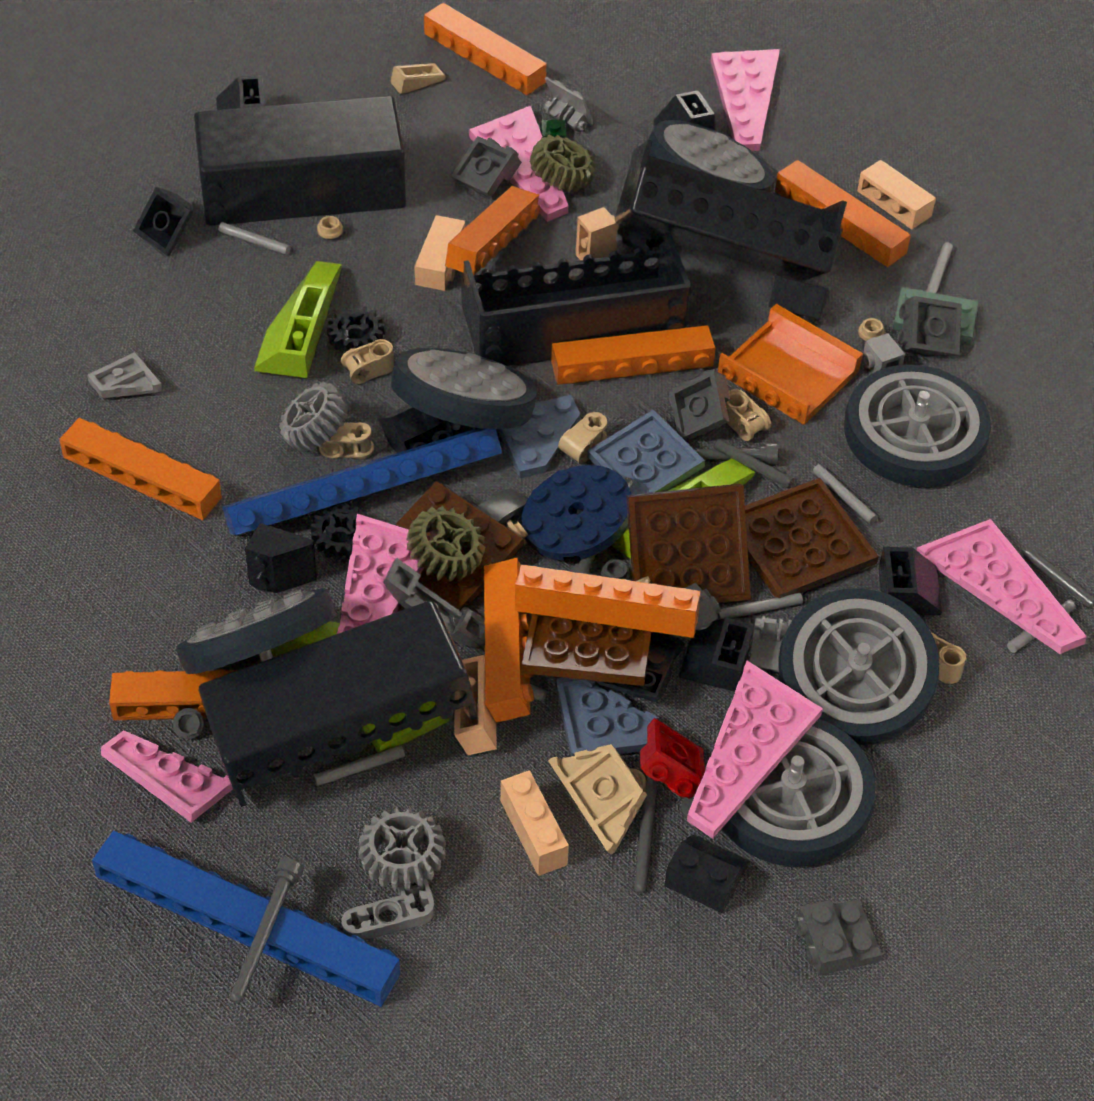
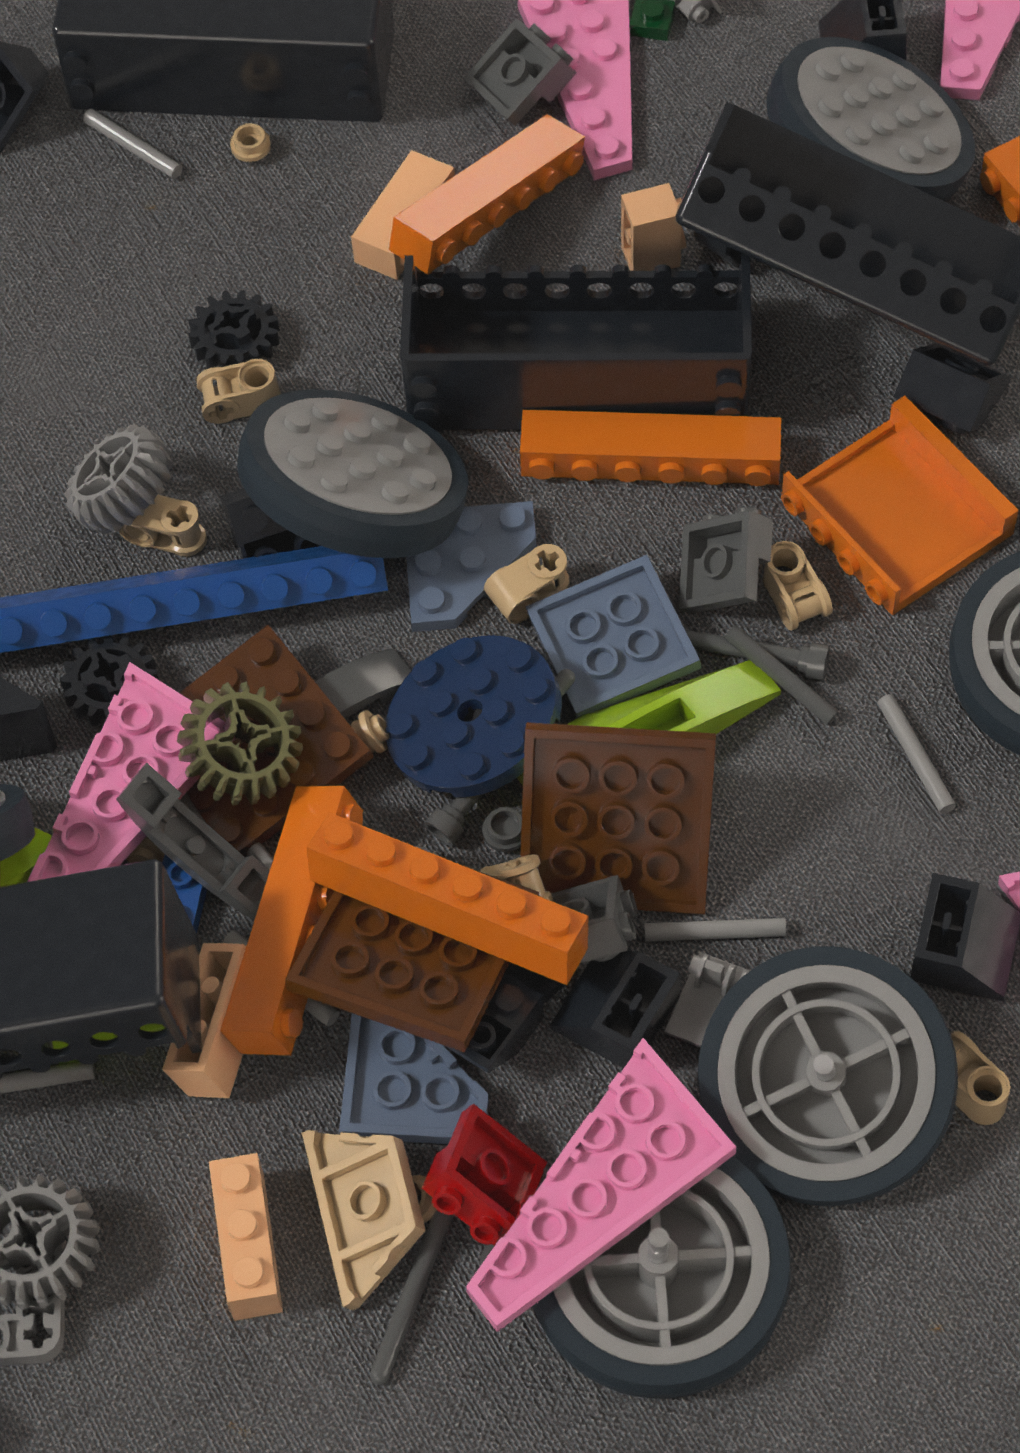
camera: 20 degrees right, 10 degrees up
(298, 326) = (152, 309): lime wedge -> none
(562, 163) = (642, 83): olive gear -> none
(705, 872) = (485, 1373): black slope -> none
(804, 539) = (816, 824): reddish brown plate -> none

